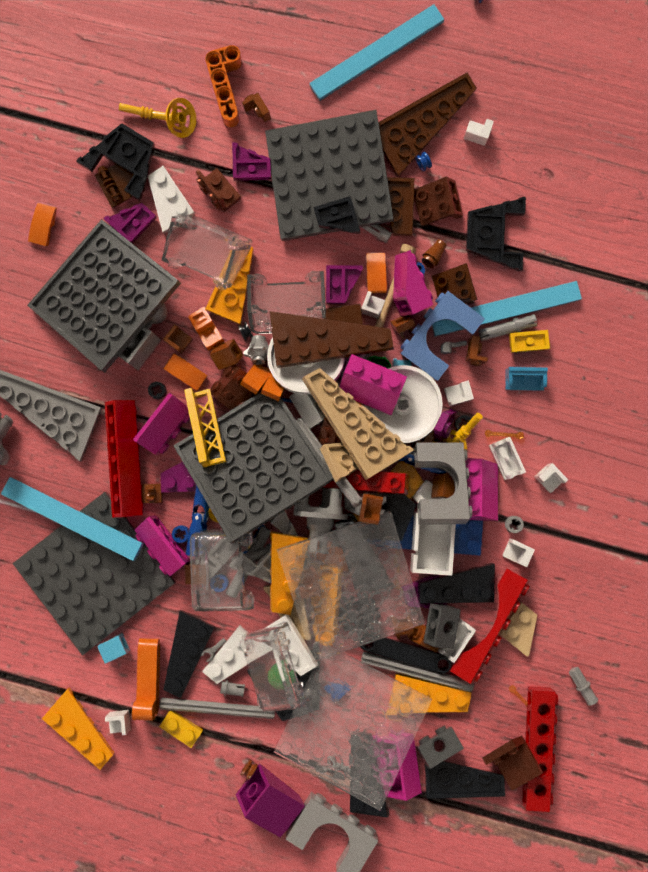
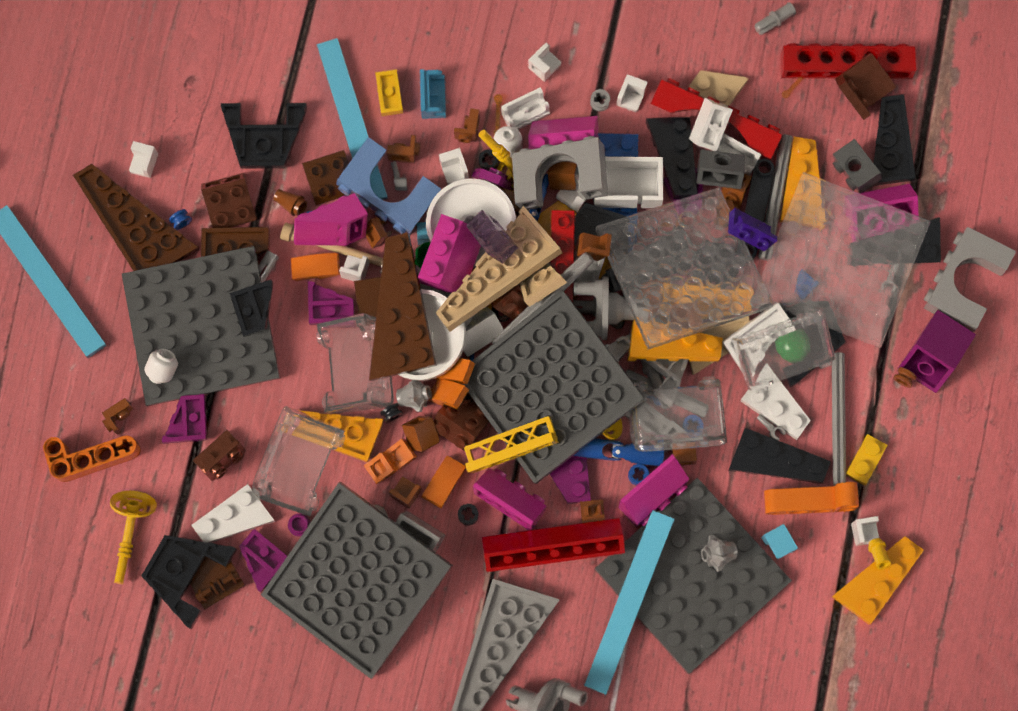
camera: 90 degrees left, 10 degrees down
(41, 224) = (268, 669): orange slope -> none
(97, 732) = (877, 548): none -> yellow pin
(104, 596) = (718, 552): none -> light grey rock
(156, 251) = (298, 524): none -> magenta plate
(232, 689) = (814, 402): light grey pin -> none
(292, 139) = (161, 366): none -> white head
(382, 419) = (492, 236): none -> brick
(383, 647) = (750, 230): none -> dark purple bracket
(478, 441) = (509, 138): none -> white head
(482, 620) = (710, 124): none -> white hinge
(493, 411) = (470, 129): none -> dark orange bracket
(508, 327) = (371, 108): light grey pin -> none

